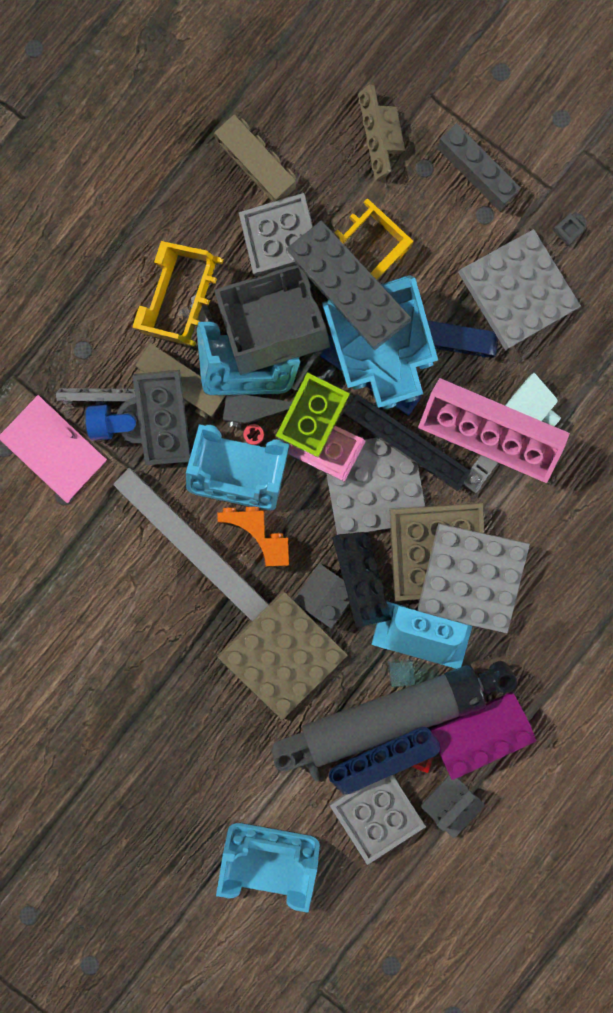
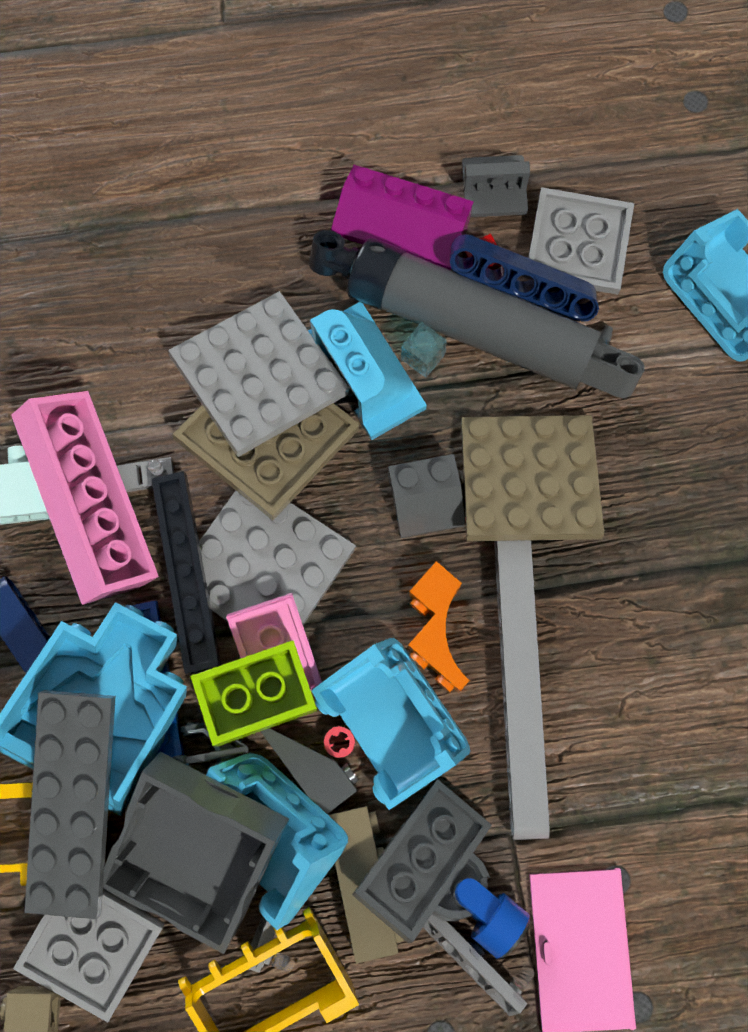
camera: 135 degrees left, 10 degrees down
(361, 578) = (372, 474): black plate -> none

